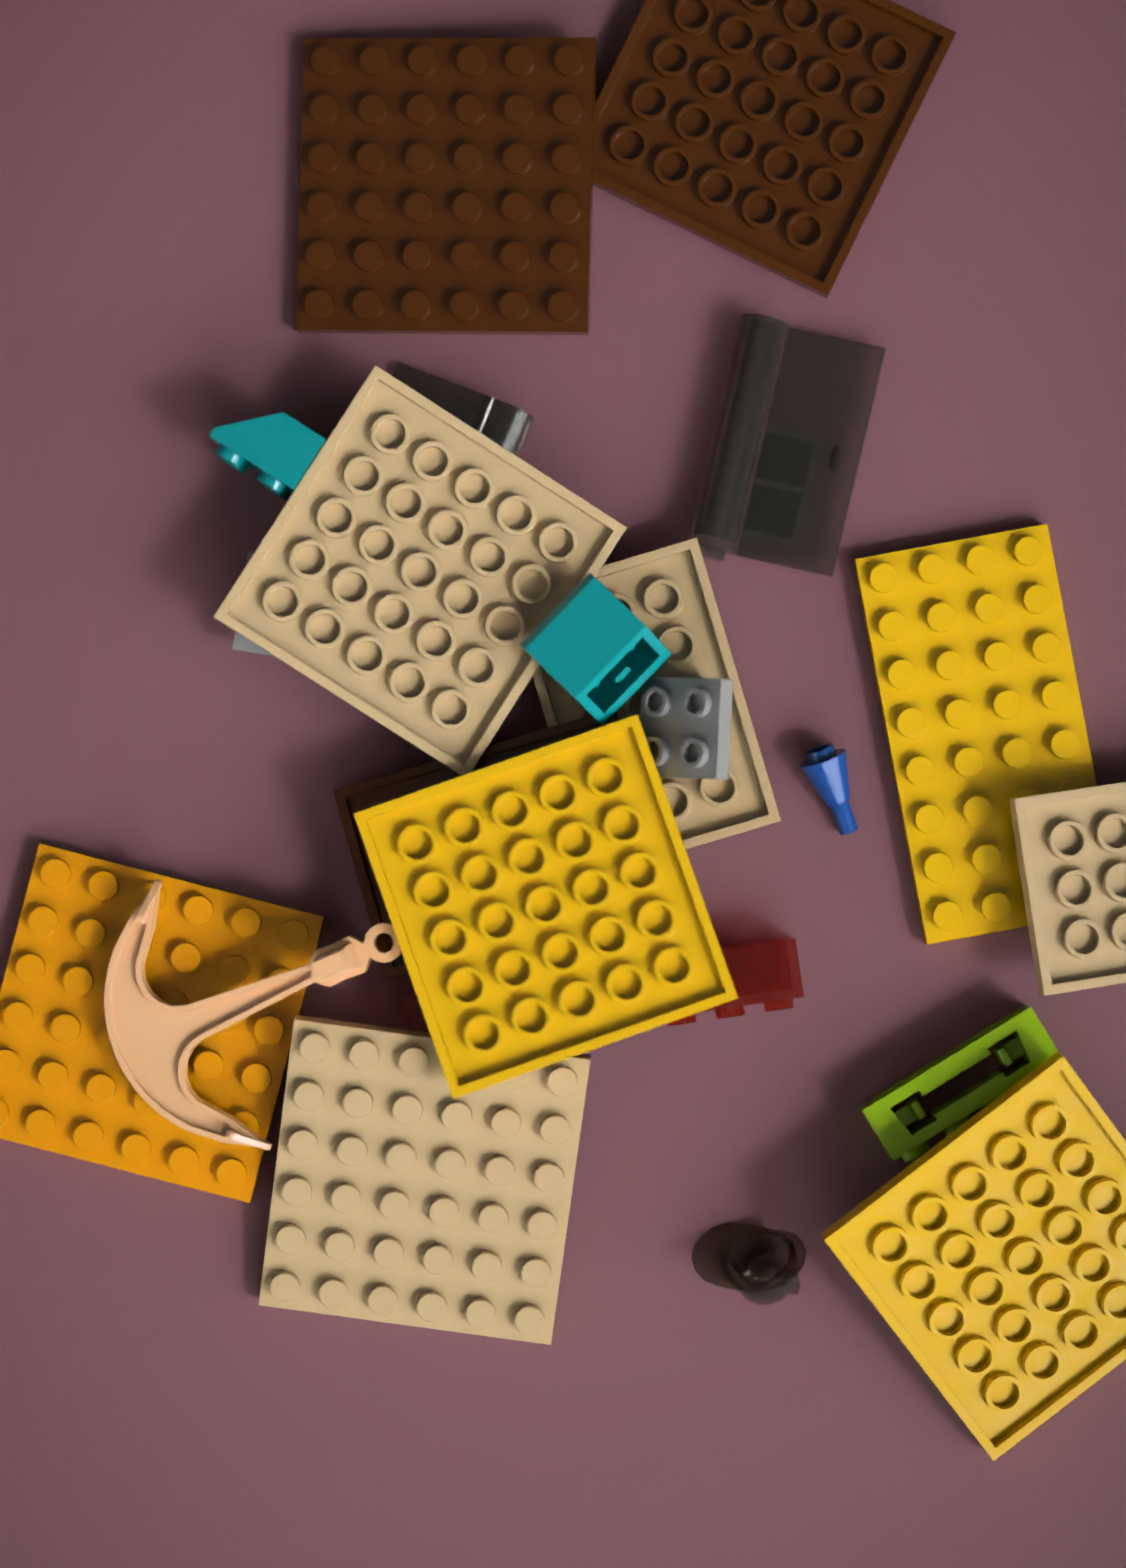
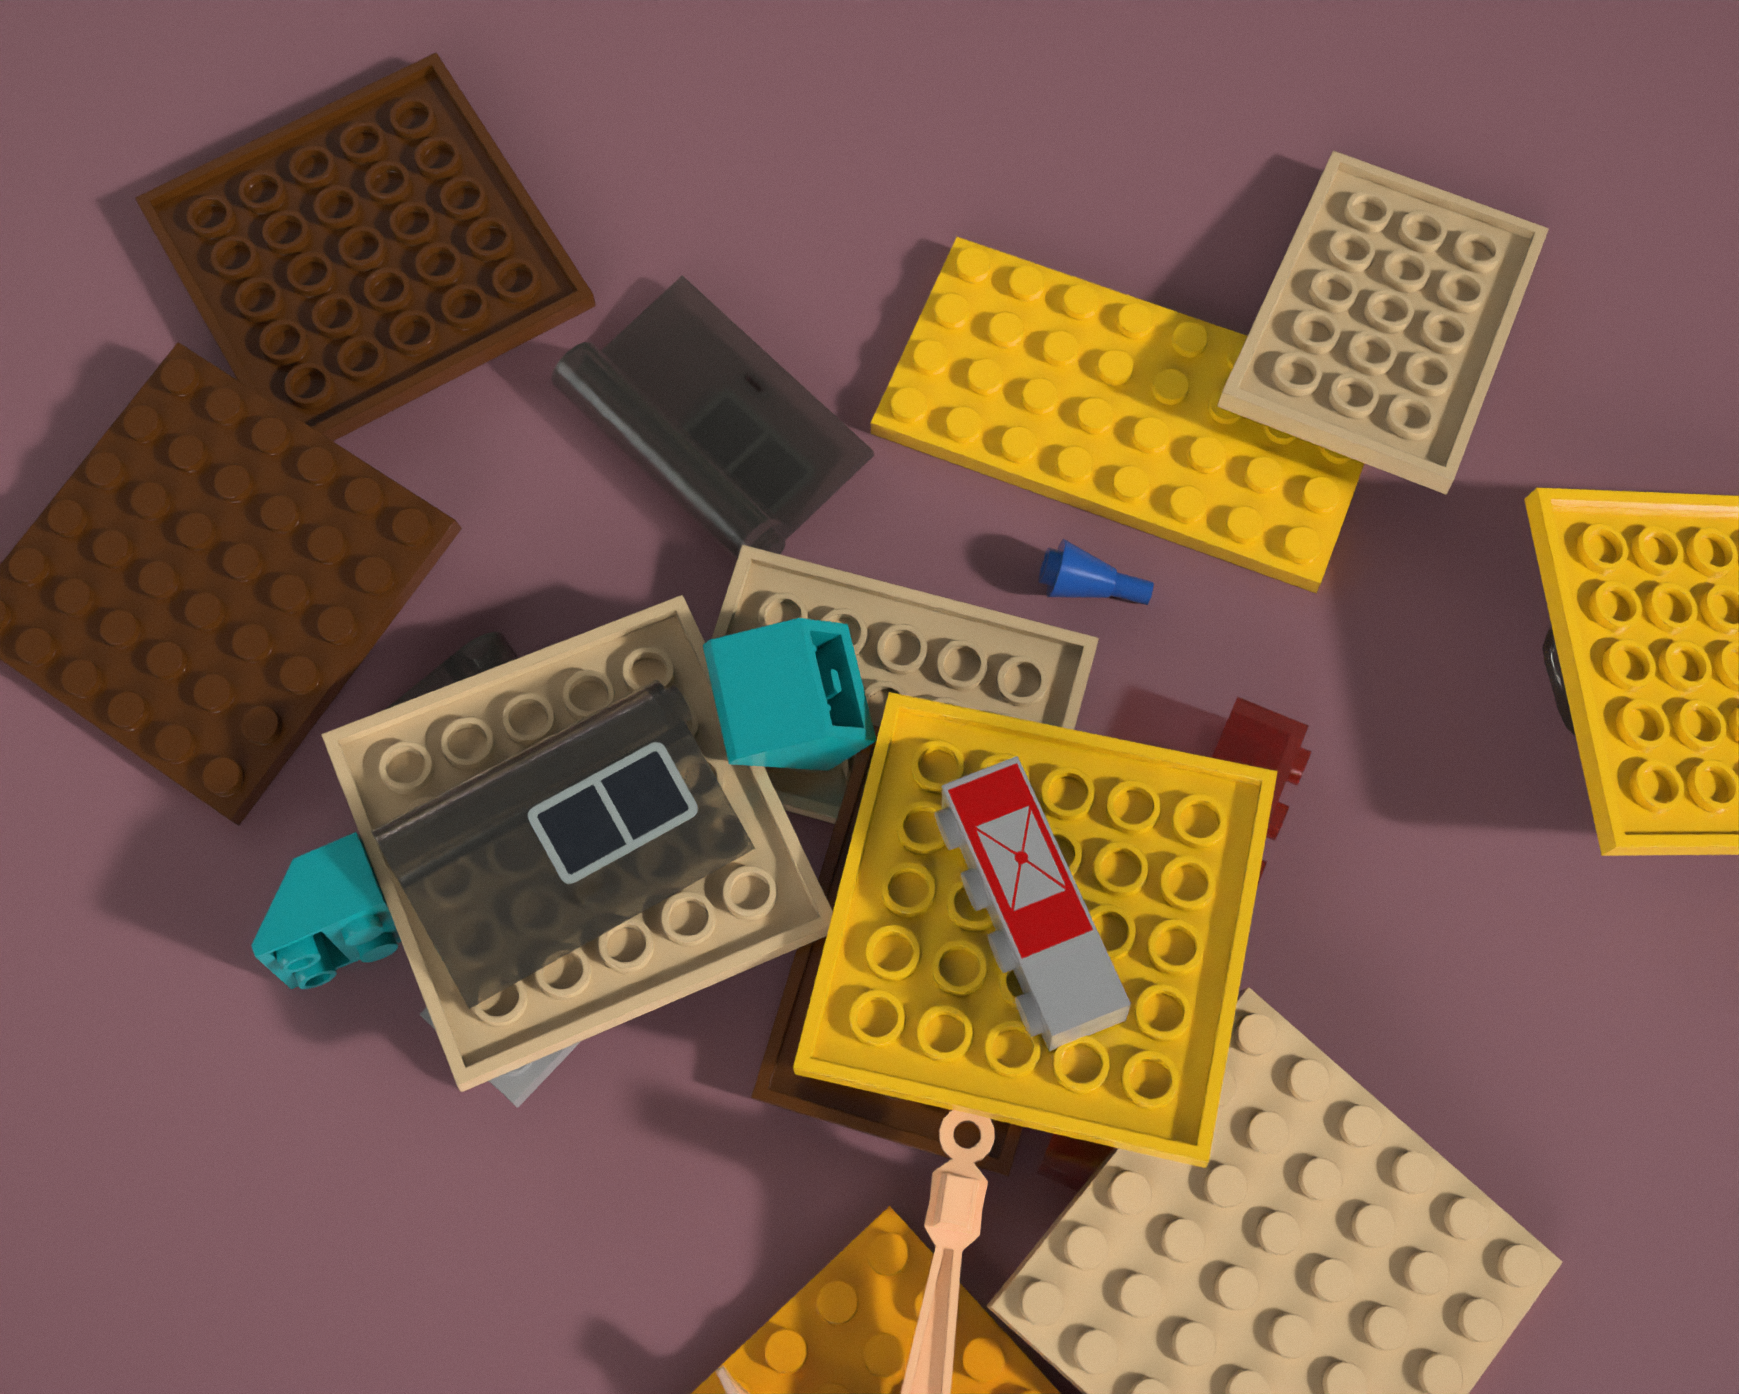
camera: 55 degrees left, 20 degrees down
(392, 555) = (593, 812): none -> clear smoke door
(543, 897) = (1033, 905): none -> light grey brick
(688, 725) = (938, 650): light grey plate -> none
(750, 1259) = (1582, 964): clear smoke piece -> none
(890, 1126) = (1513, 716): lime brick -> none

